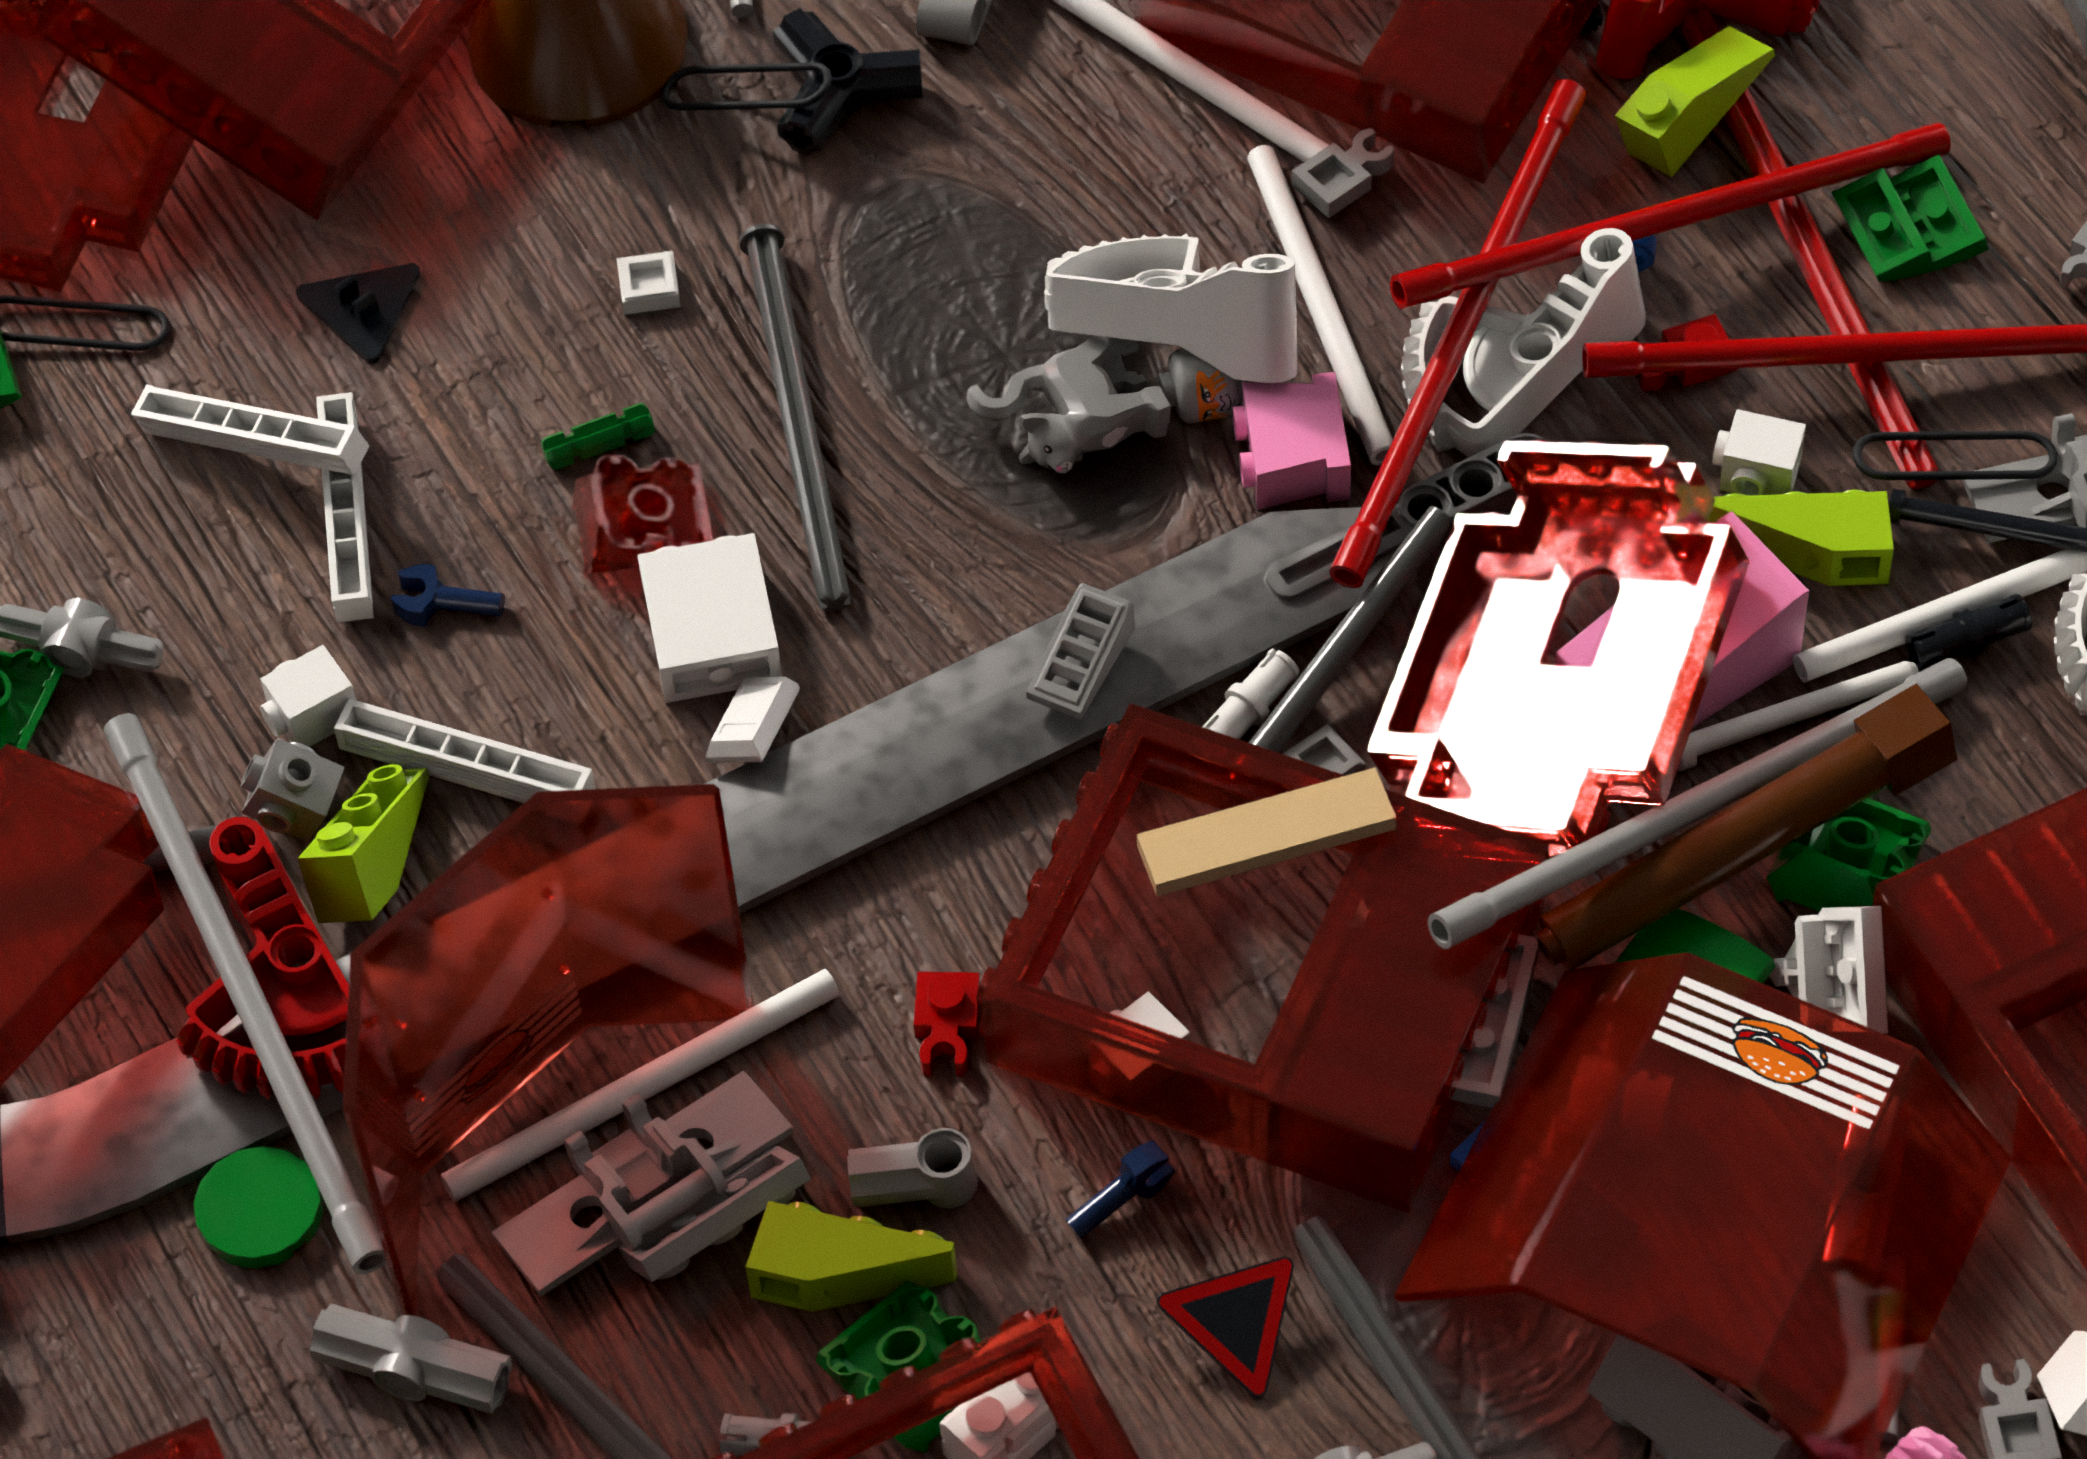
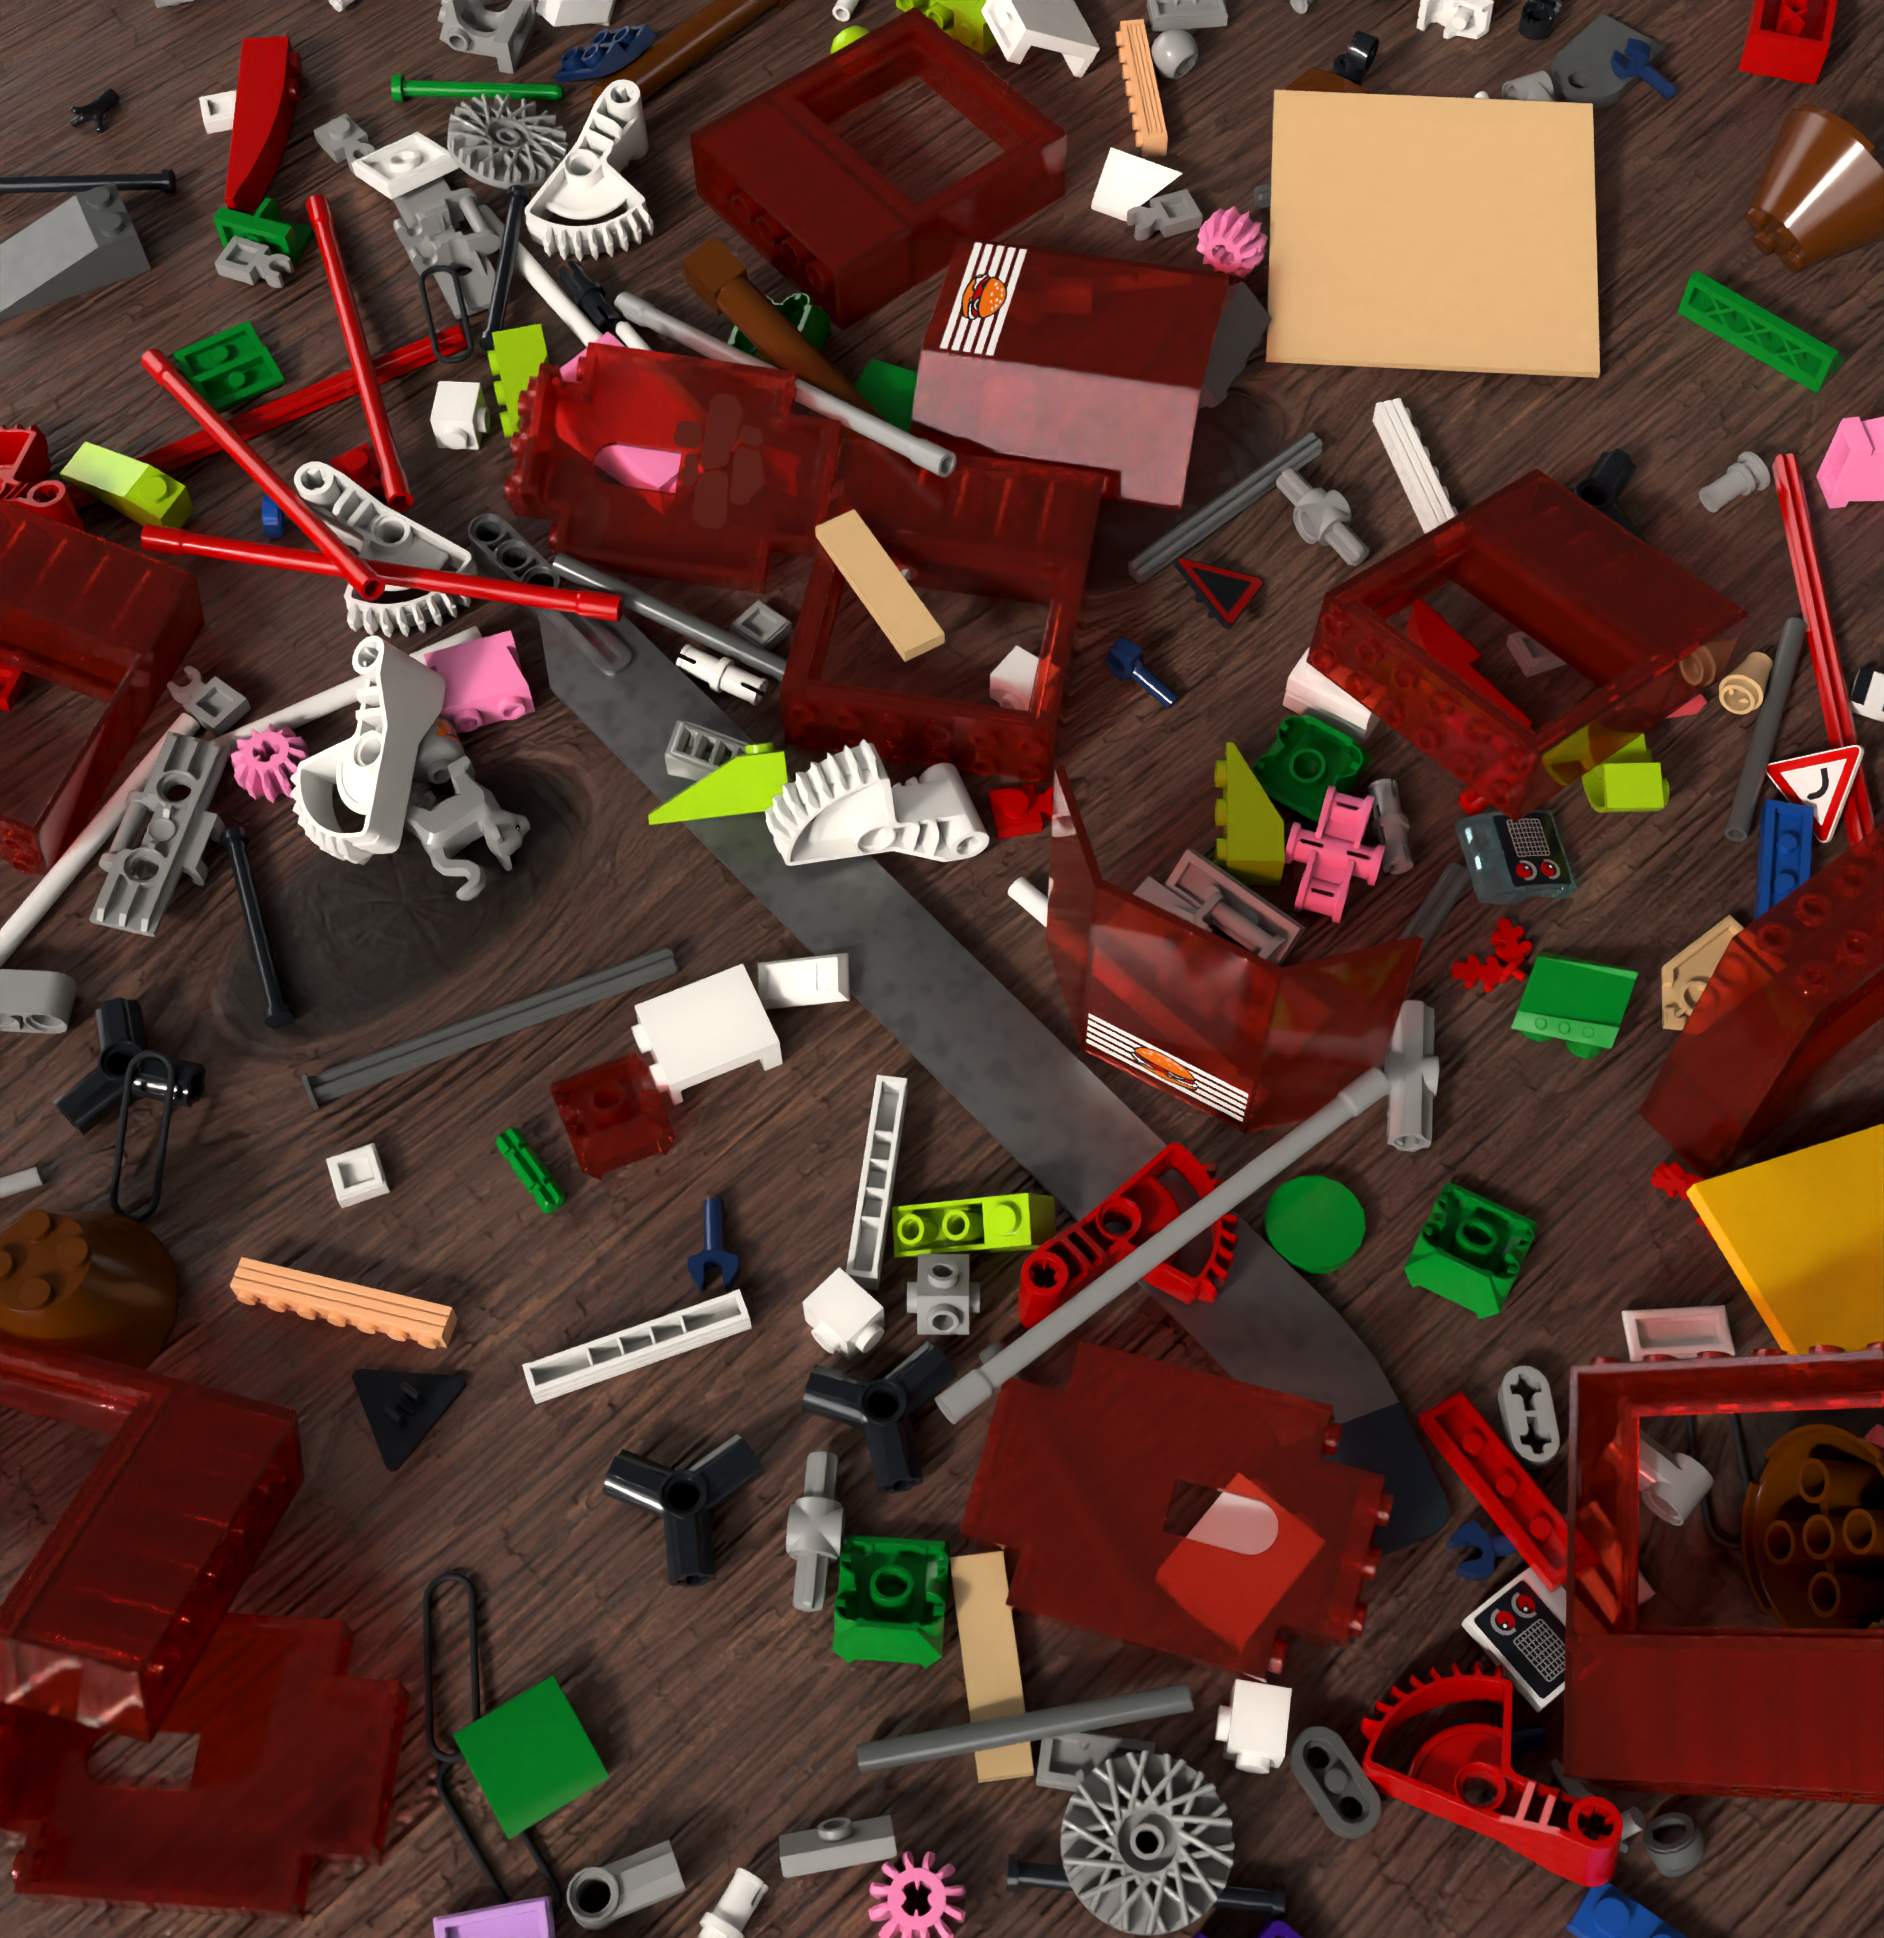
camera: 105 degrees left, 5 degrees up
(153, 525) = (689, 1531): none -> black piece
(164, 1363) = (1470, 1250): none -> green slope
(201, 698) = (889, 1439): none -> black piece
(250, 430) = (579, 1436): white piece -> none
(493, 258) = (344, 1303): none -> light nougat piece
(753, 1344) = (1333, 854): none -> bright pink axle
(907, 1171) = (1165, 795): light grey piece -> none
(948, 887) = (866, 816): none -> white arm
(1003, 205) = (277, 1012): none -> black bar
(1012, 655) = (733, 788): none -> lime slope
(1138, 123) = (172, 838): none -> light grey piece
(1228, 223) = (268, 762): none -> bright pink gear
(1839, 964) = (879, 317): white slope -> none

